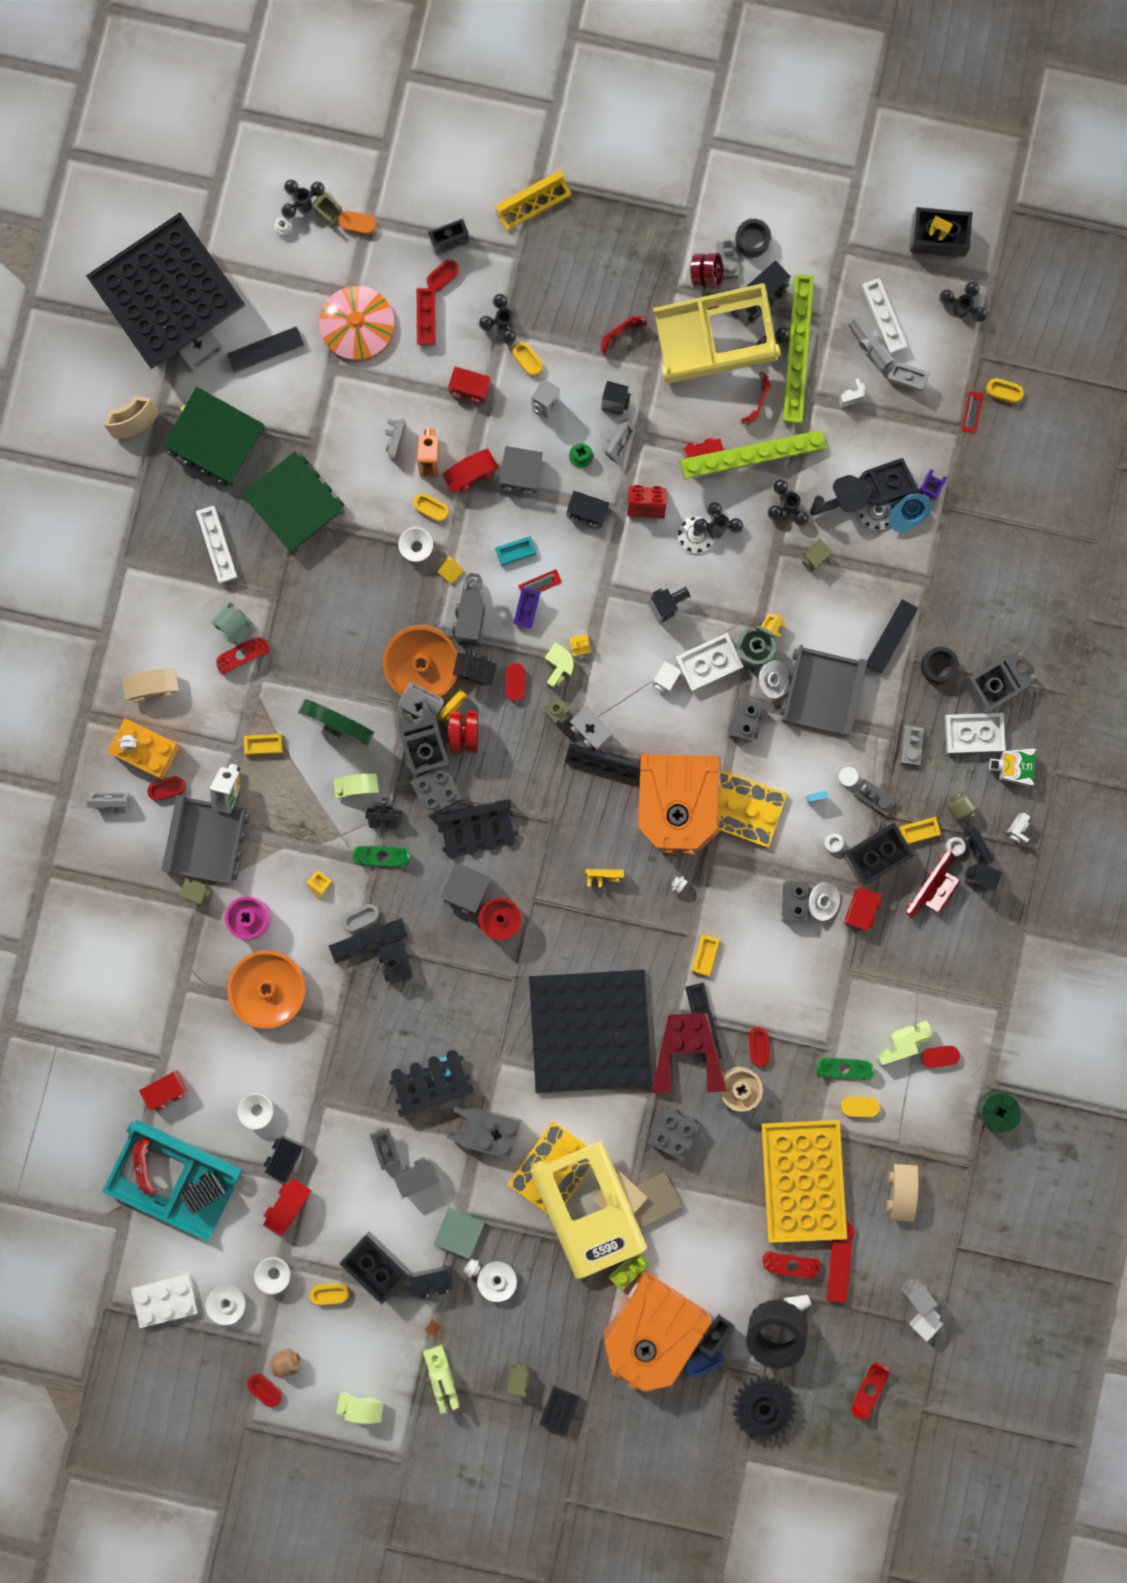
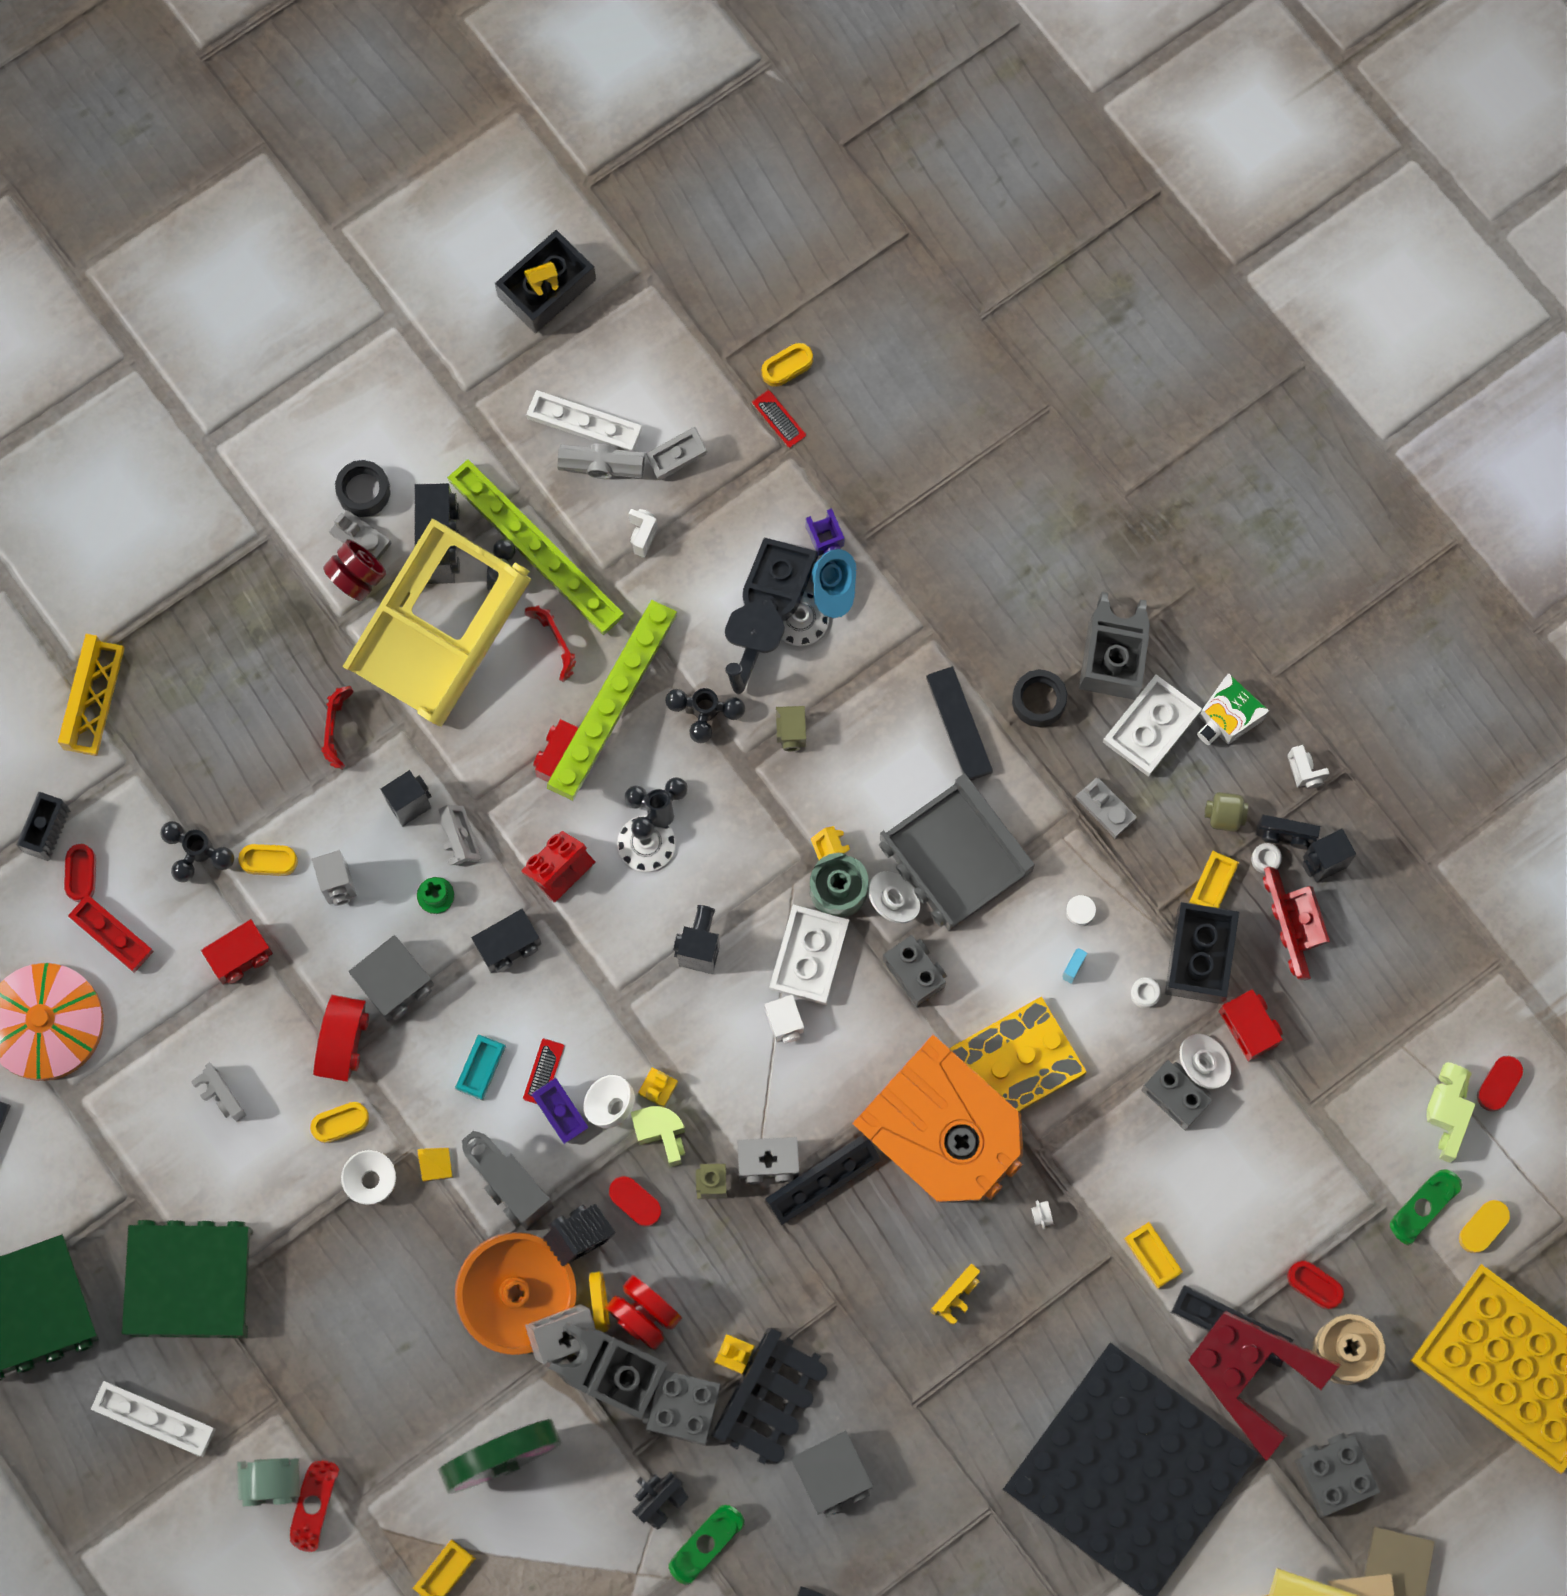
camera: 45 degrees left, 10 degrees down
(355, 785) = (593, 1501): yellowish green brick -> none
(428, 454) = (275, 1069): orange torso -> none
(483, 793) = (734, 1354): none -> yellow tile
(490, 924) = (905, 1481): red wheel -> none
(551, 622) = (603, 1096): none -> white piece
(875, 797) = (1131, 900): dark grey plate -> none
(971, 290) = (641, 304): black piece -> none

